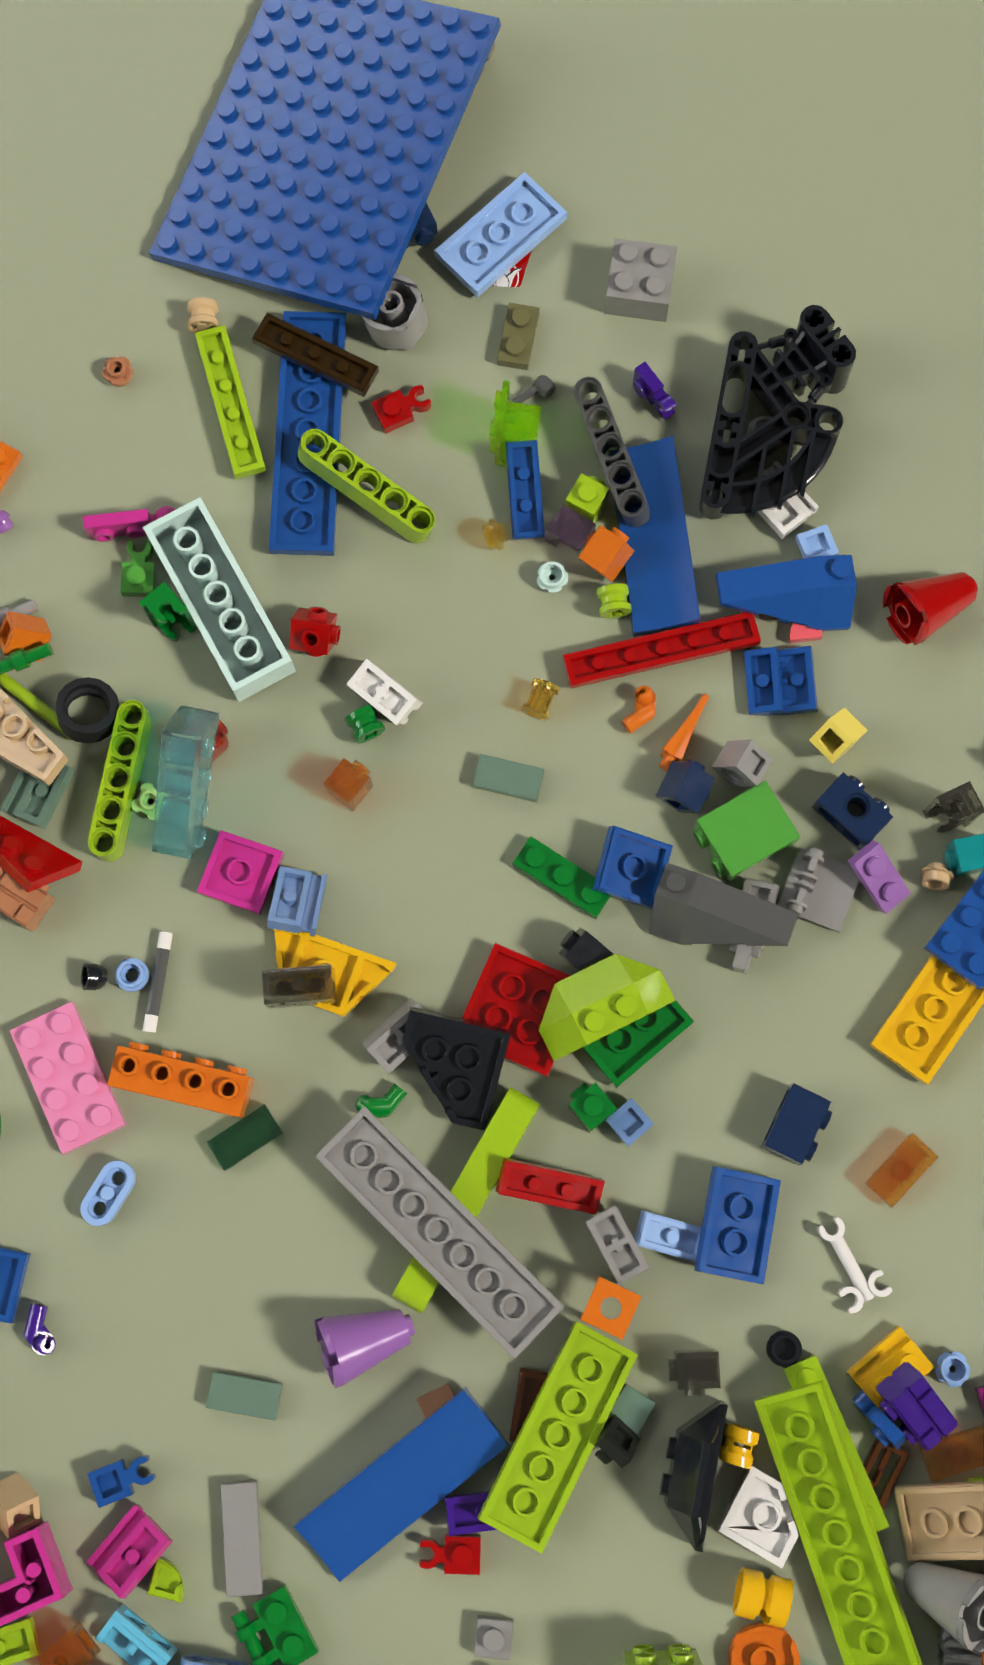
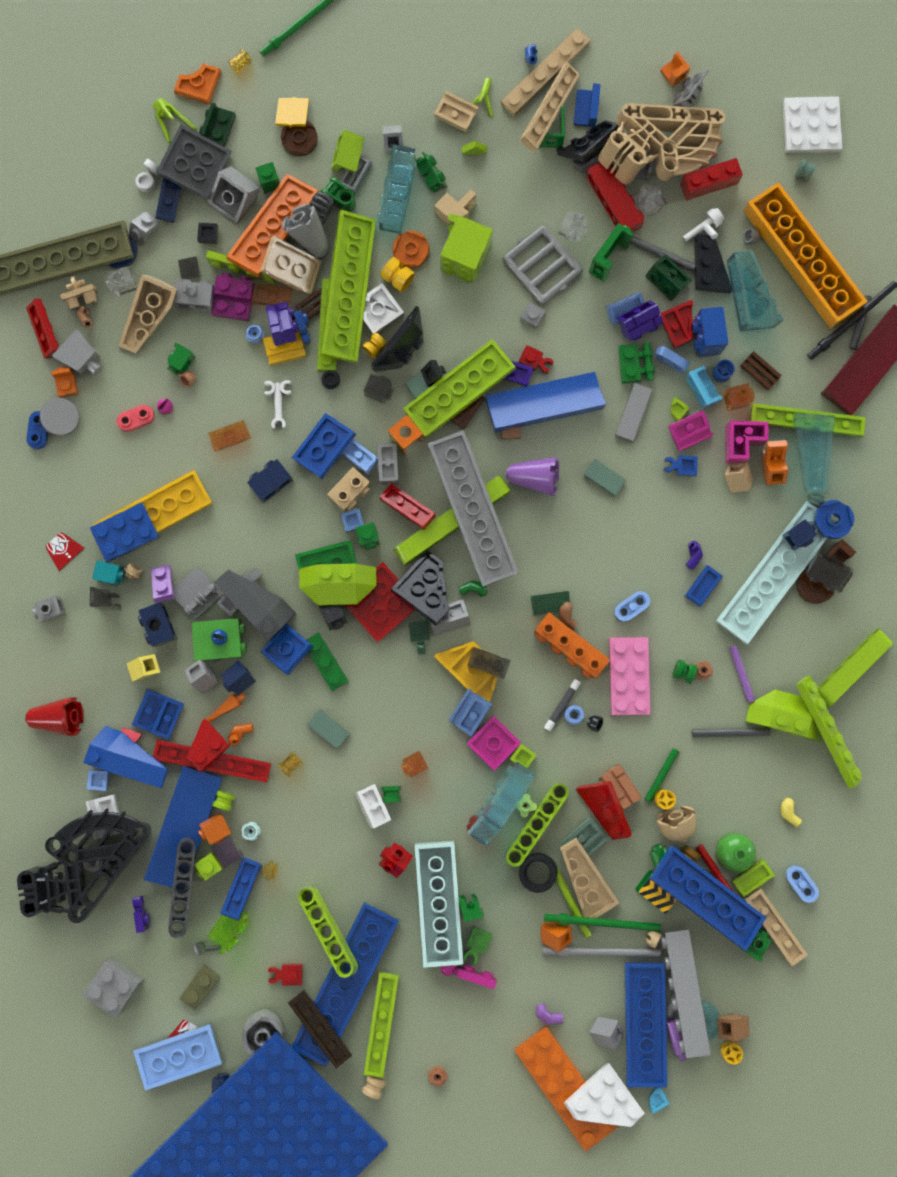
camera: 160 degrees left, 5 degrees up
(185, 873) = (523, 756): none -> lime plate
(210, 1125) = (565, 615): none -> medium nougat arm
(436, 989) = (419, 633): none -> clear green plate
(658, 1169) = (349, 490): none -> tan brick
(680, 664) = (206, 746): none -> red wing
(745, 839) = (217, 641): none -> blue hinge

